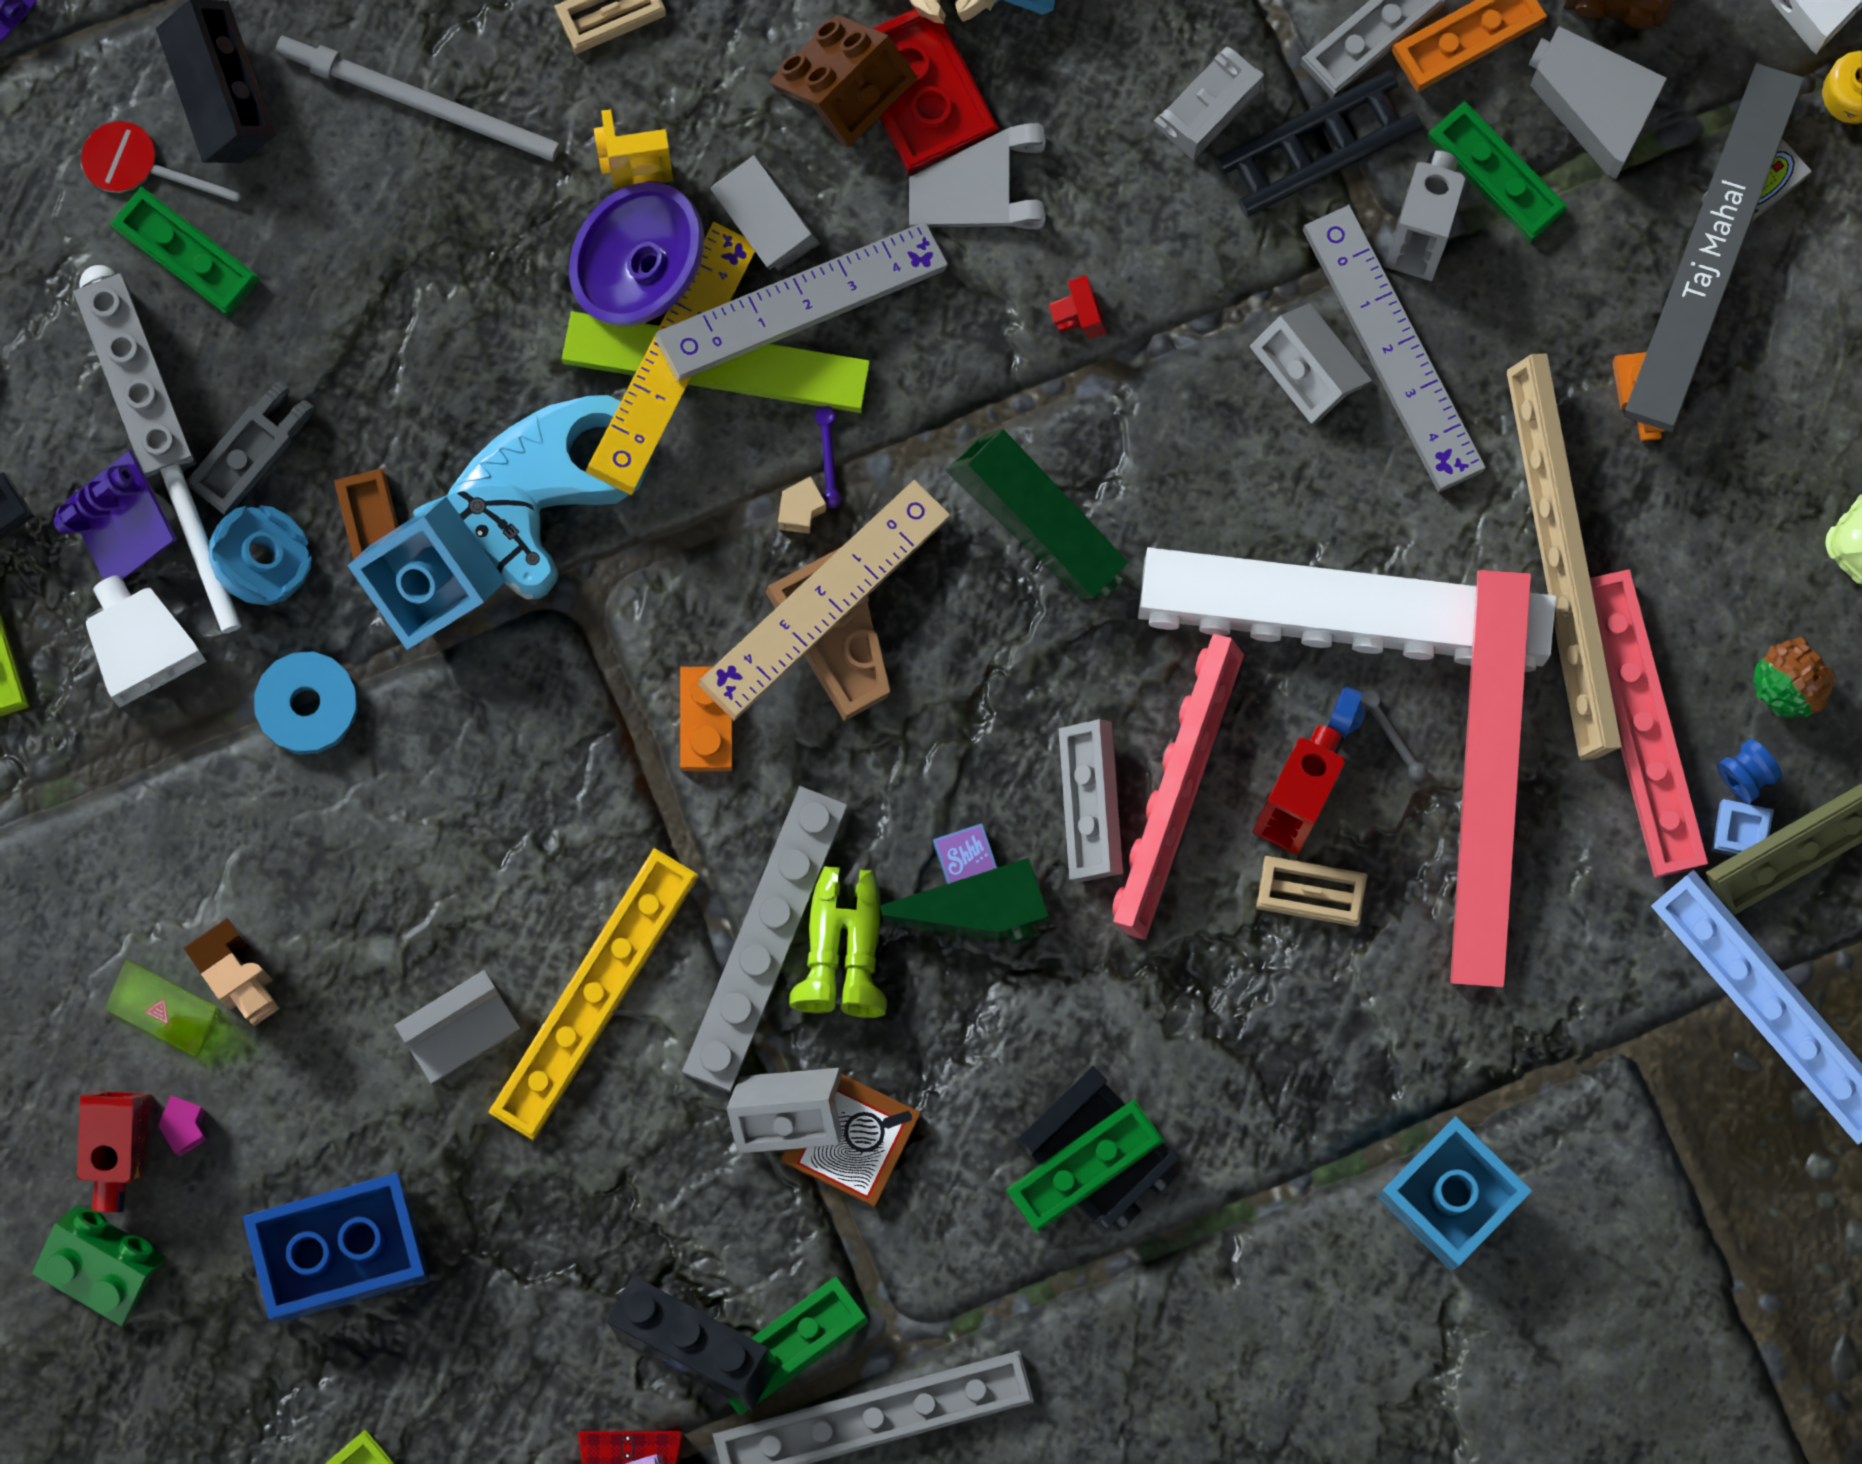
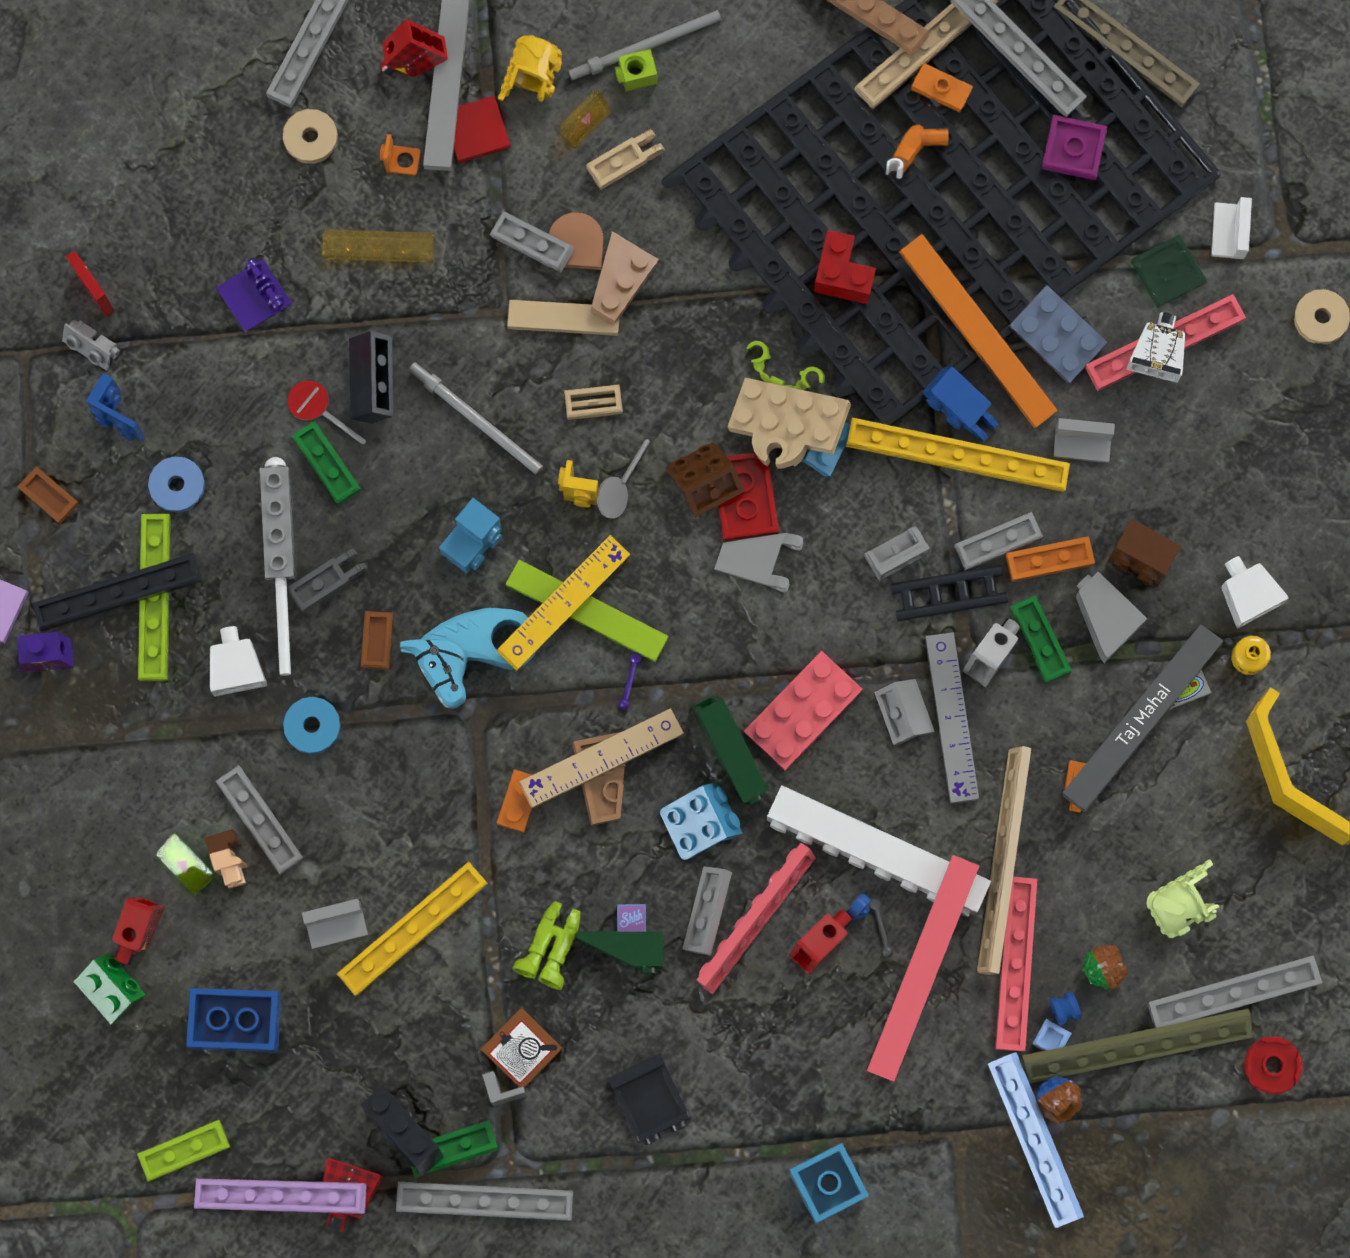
camera: 20 degrees right, 0 degrees up
(117, 519) = (244, 596): dark purple hinge -> none
(182, 1125) = (175, 929): dark pink piece -> none
(241, 573) = (299, 646): dark azure tile -> none
(267, 892) = (259, 819): none -> light grey tile
(426, 573) = (395, 678): dark azure brick -> none
(481, 287) = (473, 535): none -> dark azure brick
(636, 254) = (555, 533): dark purple dish -> none
(694, 147) = (613, 493): none -> light grey piece
(764, 214) = (638, 539): light grey hinge -> none
(764, 939) = (511, 929): light grey plate -> none
(785, 1110) = (491, 1023): light grey panel -> none
(799, 506) = (605, 703): tan piece -> none
(800, 301) = (641, 593): light grey tile -> none
(832, 1225) = (494, 1091): none -> light grey panel
(1027, 652) = (700, 820): none -> dark azure bracket
(1079, 309) = (790, 644): red tile -> none
(1084, 1166) = (639, 1104): green tile -> none
(1139, 415) = (803, 711): none -> coral plate
(1310, 911) = (830, 1008): tan tile -> none
(1792, 926) = (1059, 1099): none -> dark orange piece

